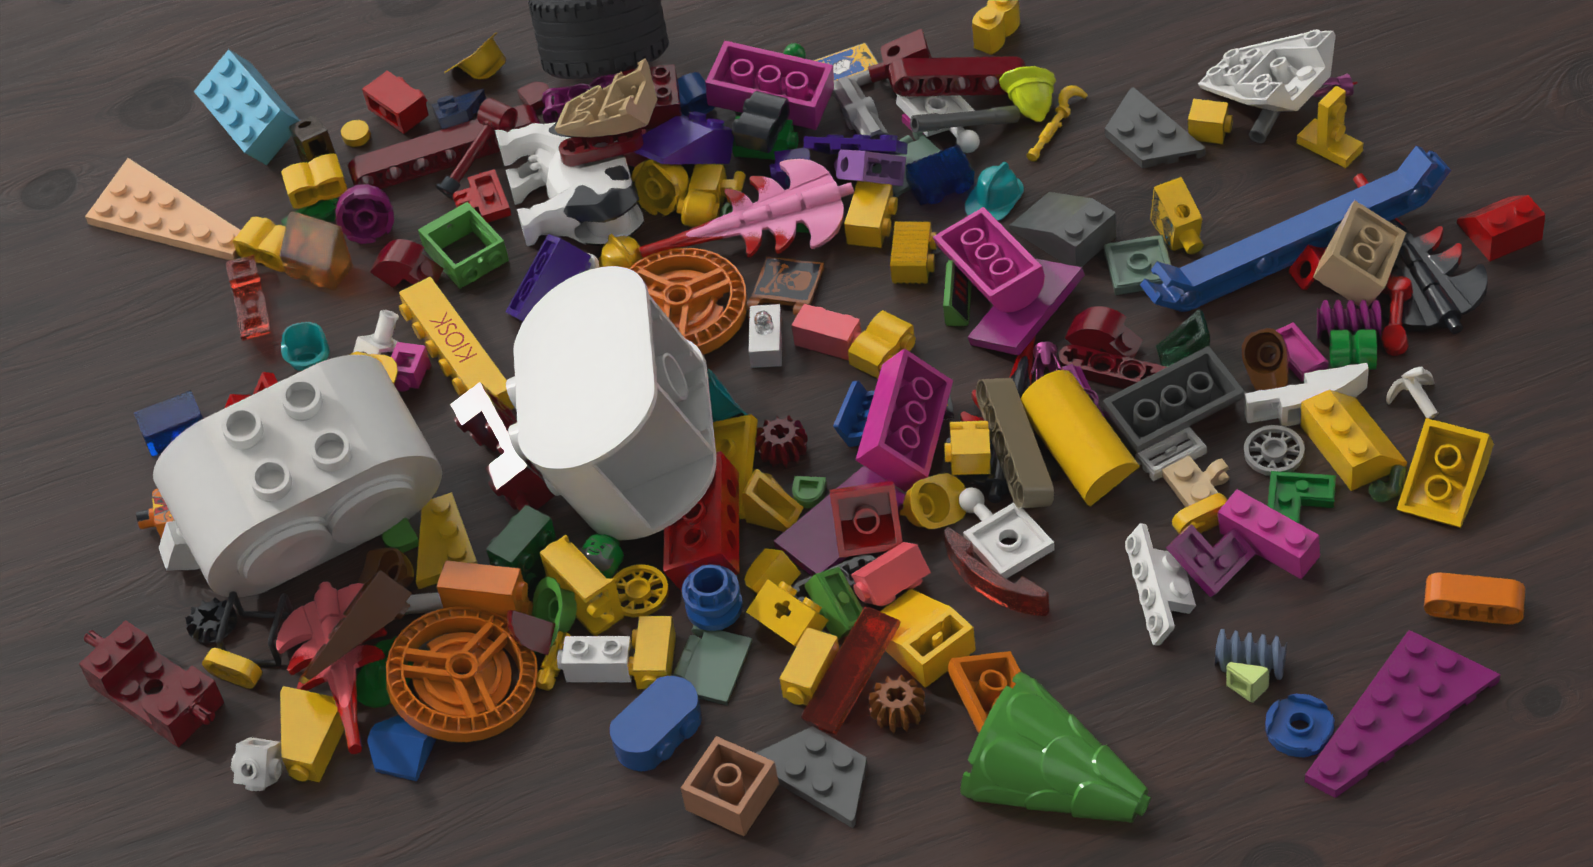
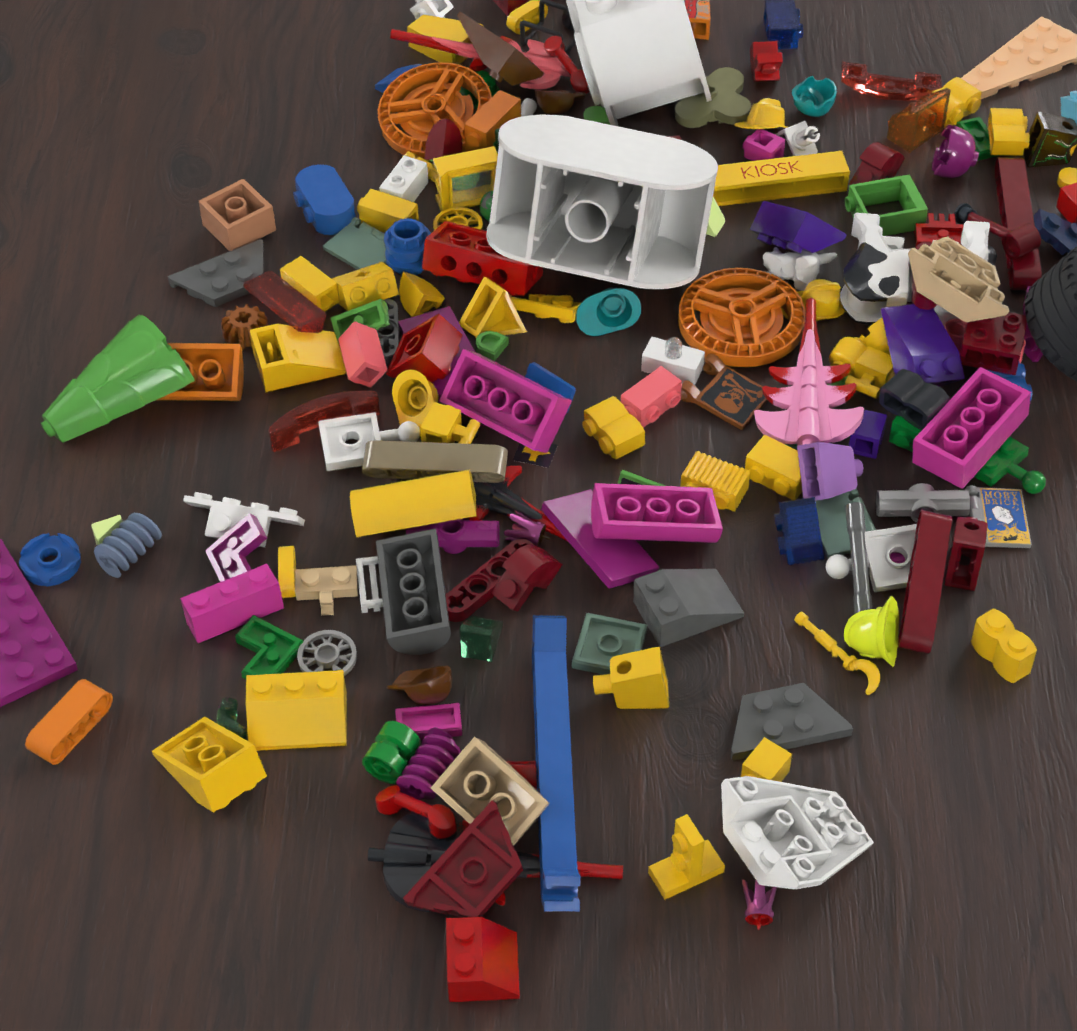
camera: 105 degrees right, 0 degrees up
(307, 593) = (555, 48): none -> red bar
(781, 441) = (546, 336): dark red gear -> none
(834, 143) = (867, 471): dark purple wing -> none
(995, 191) = (763, 573): teal piece -> none
(1286, 401) = (362, 697): white slope -> none
(1412, 381) = (324, 780): white plant -> none
(1440, 238) = (470, 871): none -> dark red wing

